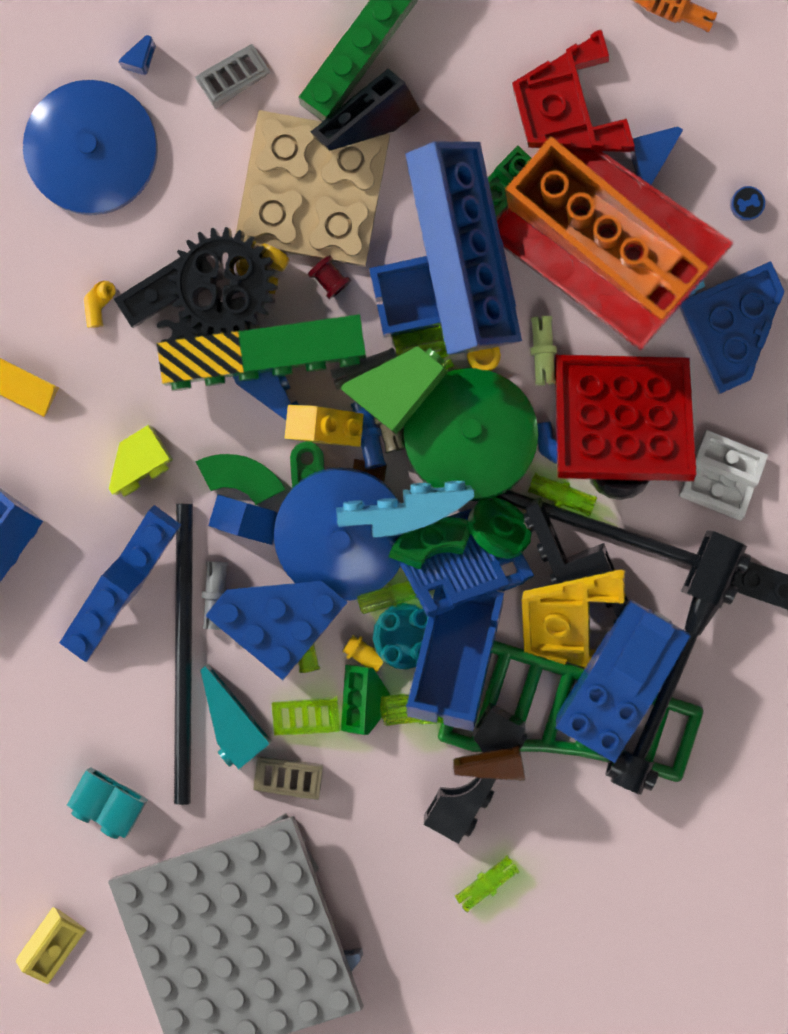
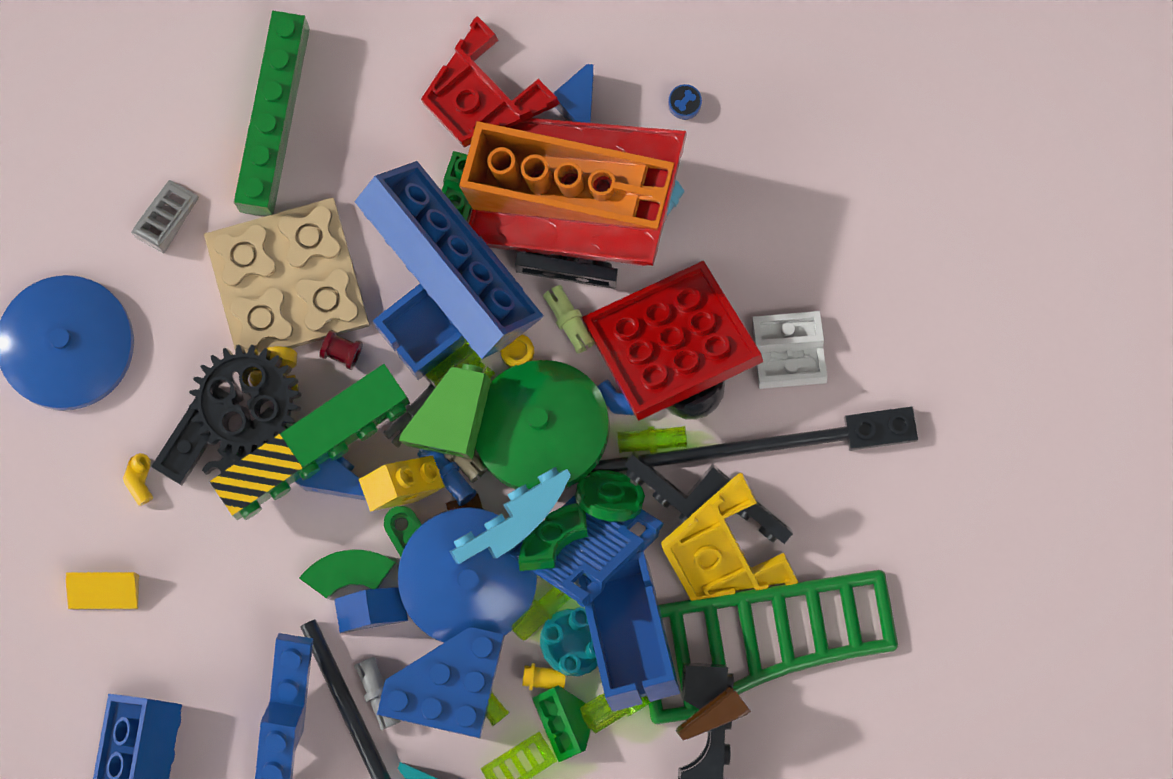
camera: 25 degrees left, 10 degrees down
(137, 458) = (243, 602): neon yellow slope -> none
(139, 56) = (72, 239): blue slope -> none
(370, 113) = (308, 183): black slope -> none
(563, 305) = (567, 269): none -> black plate
(621, 680) = (792, 576): blue piece -> none
(710, 586) = (829, 453): black bar -> none
(733, 324) = (727, 211): blue plate -> none

